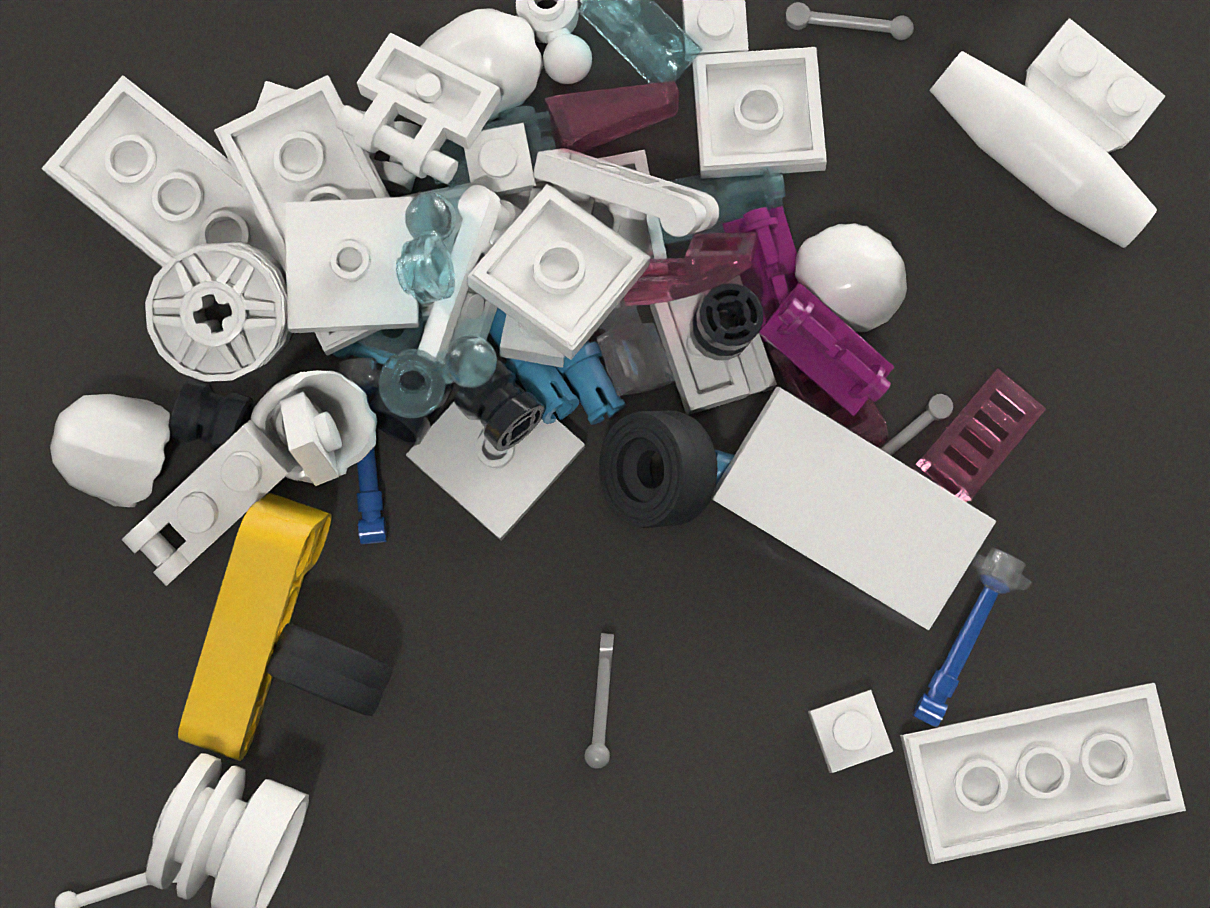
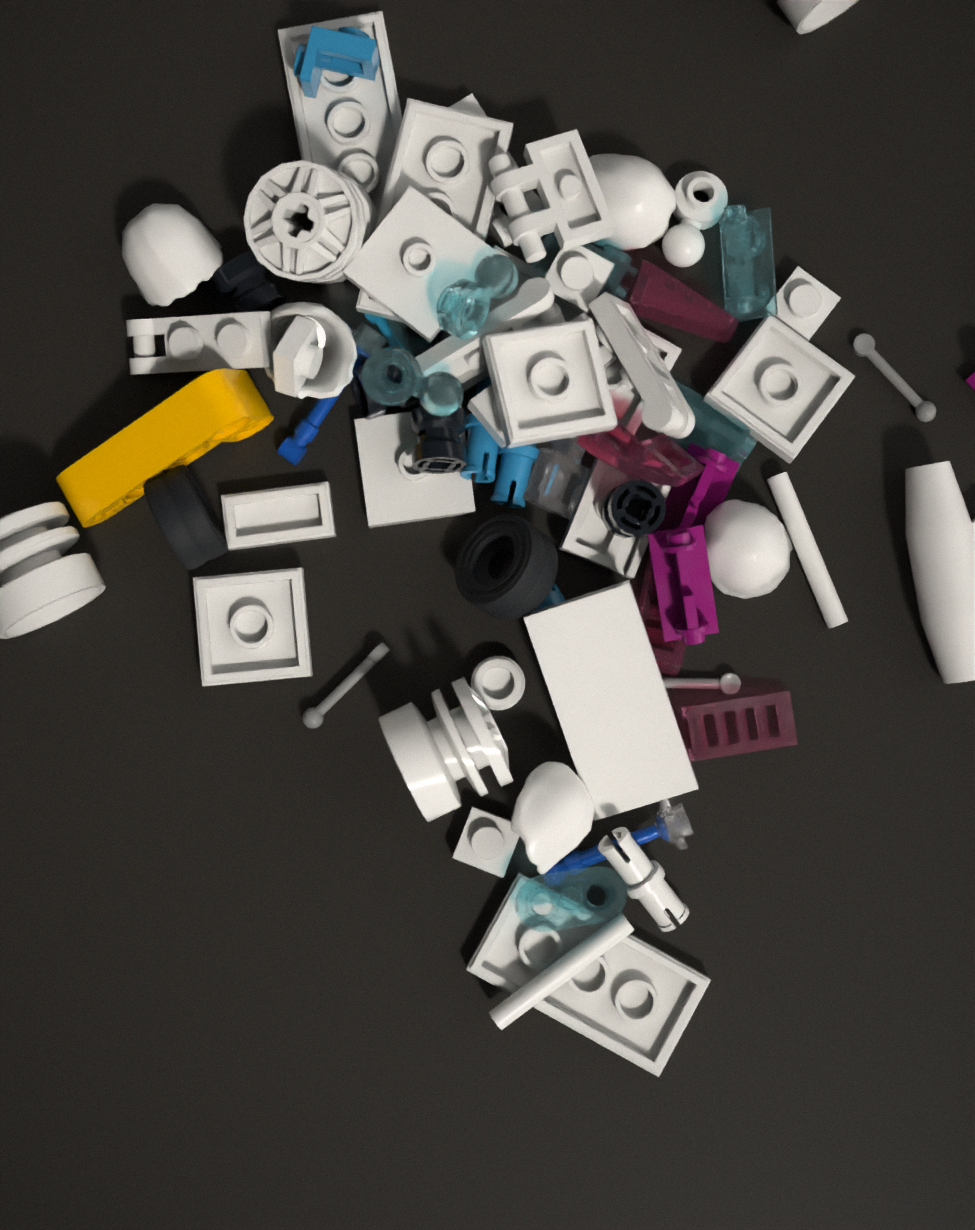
camera: 40 degrees right, 5 degrees up
(117, 139) = (340, 51): none -> dark azure bracket
(410, 599) = (278, 516): none -> white tile
(472, 719) = (252, 627): none -> white plate
(736, 581) = (498, 682): none -> white tile
(746, 674) = (446, 749): none -> white wheel
(890, 652) = (552, 814): none -> white hair
(906, 233) = (807, 550): none -> white bar
(969, 718) = (569, 899): none -> clear light blue plate
(1018, 643) = (643, 879): none -> white pin
(1018, 789) = (561, 971): none -> white bar

